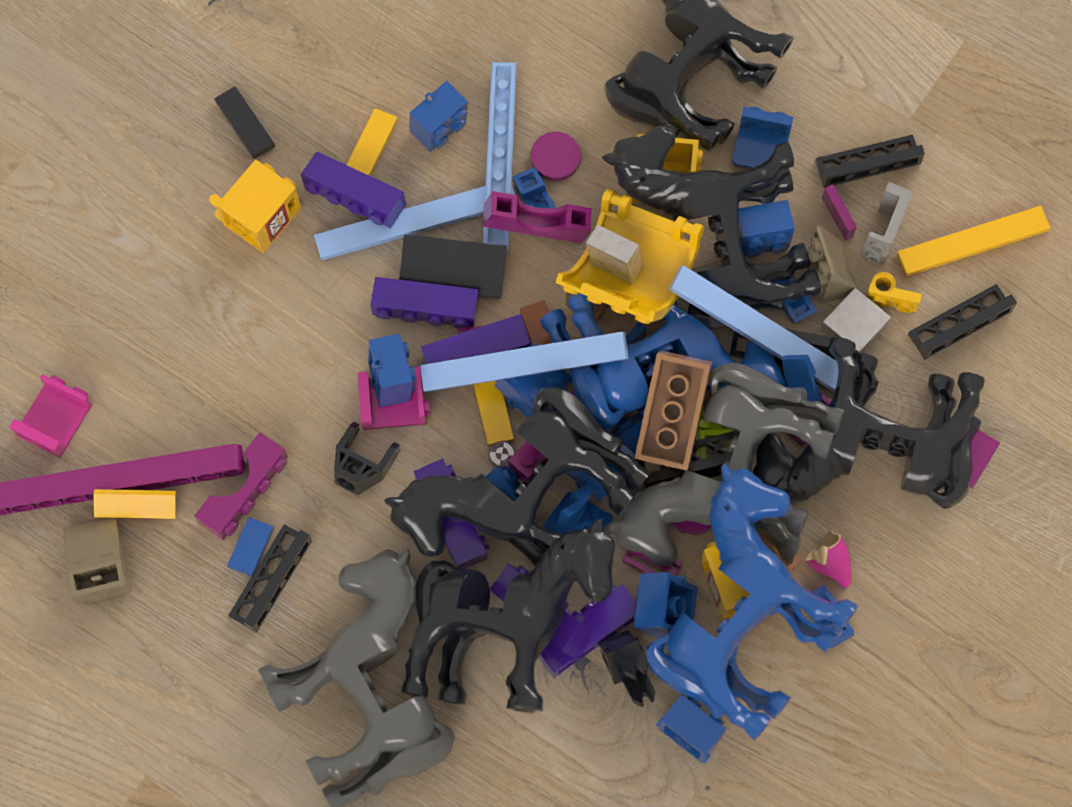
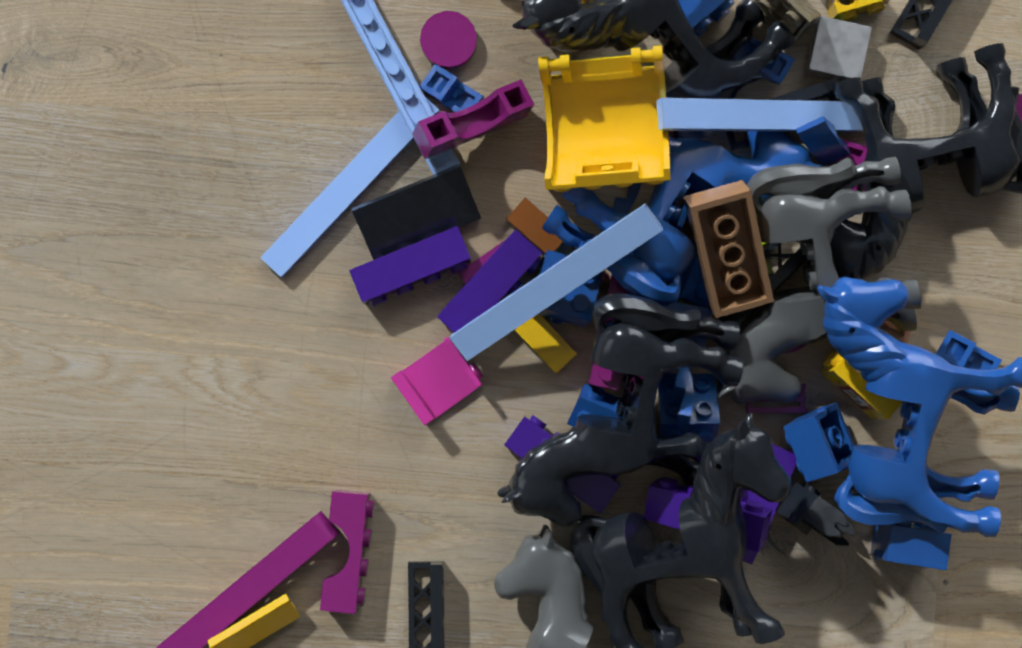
camera: 25 degrees left, 15 degrees up
(53, 416) = (119, 586): dark pink panel -> none
(244, 122) = (118, 178): black tile -> none
(250, 547) = (389, 602): blue tile -> none
(258, 205) = (187, 260): yellow container -> none
(353, 190) = (271, 191): dark purple brick -> none
(355, 471) = (434, 471): black piece -> none
(372, 141) = (259, 132): yellow tile -> none
(390, 370) = (420, 355): blue brick -> none
(437, 118) = (310, 71): blue brick -> none
(500, 453) = (574, 375): tile -> none
(615, 254) = (585, 124): piece -> none
(831, 558) = (943, 301): dark pink hat -> none

